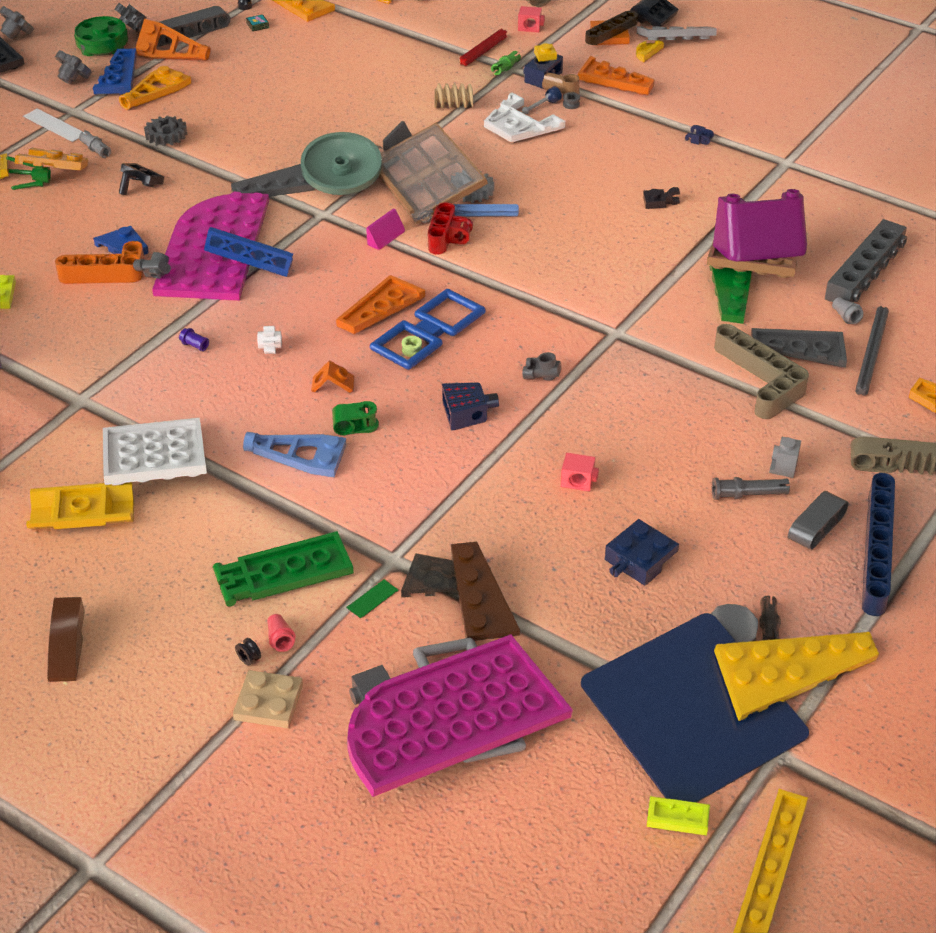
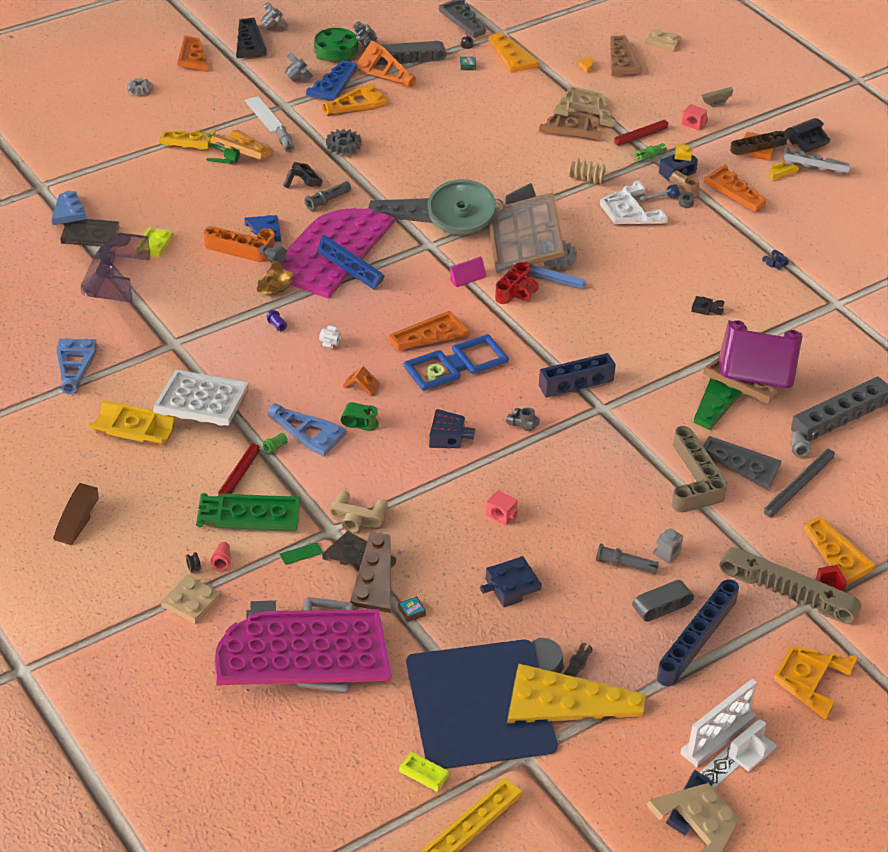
camera: 20 degrees right, 0 degrees up
(173, 194) = (321, 198): none -> dark grey pin
(173, 291) = (279, 280): none -> pearl gold helmet
(243, 523) = (240, 469): none -> red axle
(267, 481) = (272, 444): none -> bright green pin
(407, 55) = (574, 124): none -> medium nougat wing
(413, 29) = (587, 101): none -> tan wing
(414, 534) = (354, 516): none -> tan connector
(543, 622) = (412, 609): none -> tile
(573, 304) = (577, 375): none -> dark blue brick

